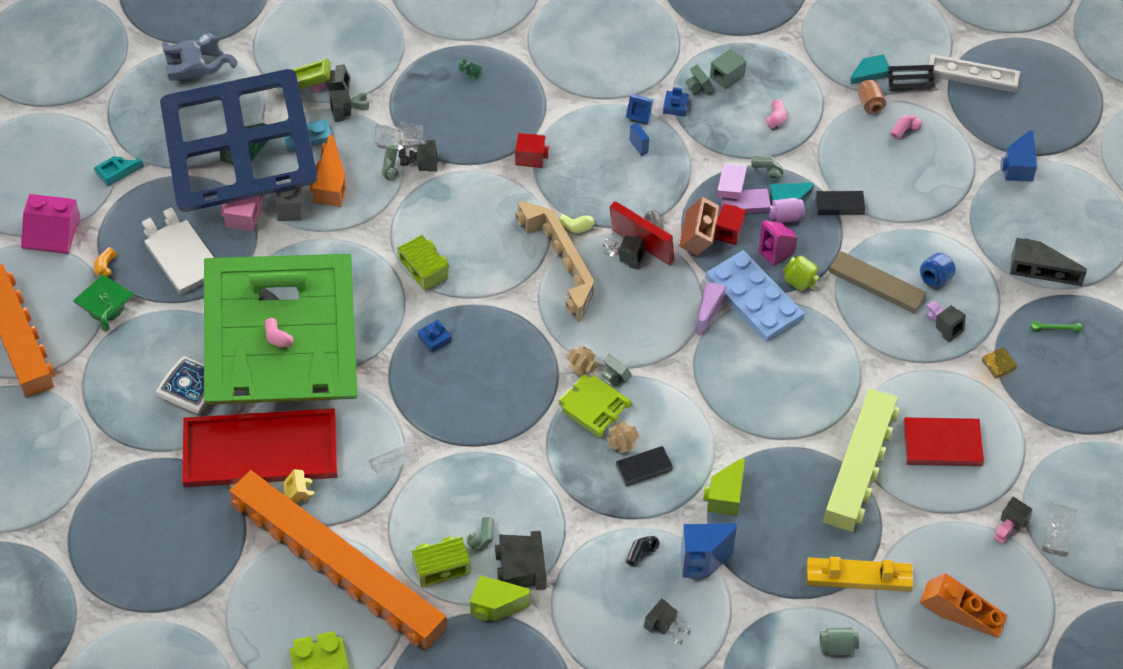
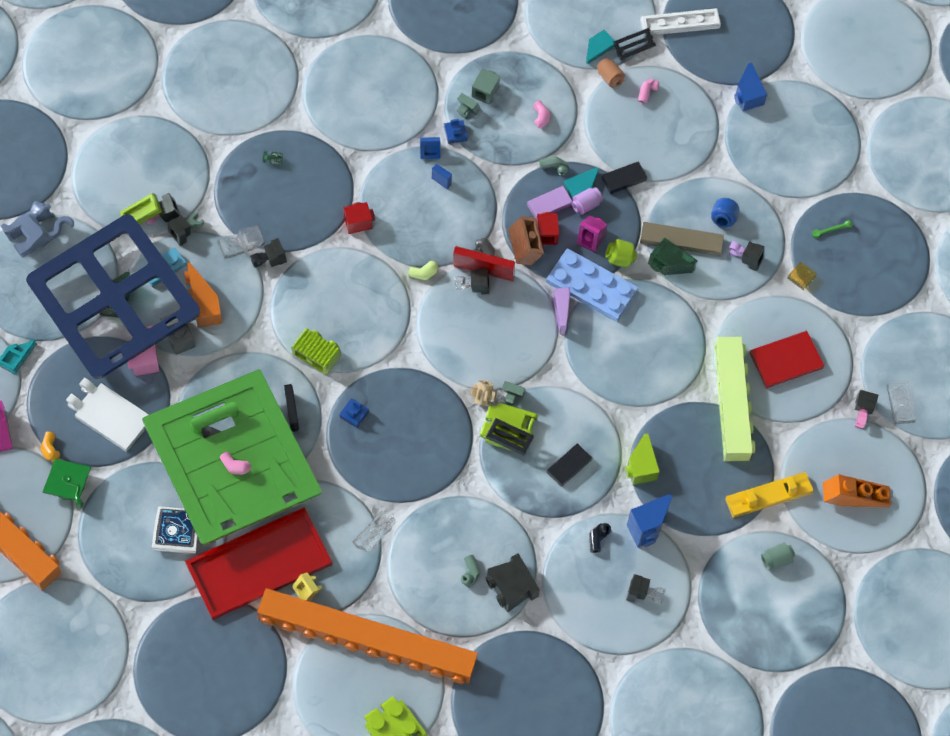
camera: 25 degrees left, 10 degrees up
(369, 307) = (291, 407): none -> black tile
(388, 168) = (245, 269): sand green arm -> none
(441, 561) = (449, 606): lime brick -> none
(497, 599) = (507, 621): lime slope -> none
(537, 217) = (388, 277): tan slope -> none
(578, 411) = (516, 448): none -> black tile
(623, 437) = (544, 448): tan gear -> none
(732, 181) = (532, 189): lavender tile -> none
(854, 297) = (671, 259): none -> clear green slope
(1042, 262) = (799, 177): pearl dark grey slope -> none

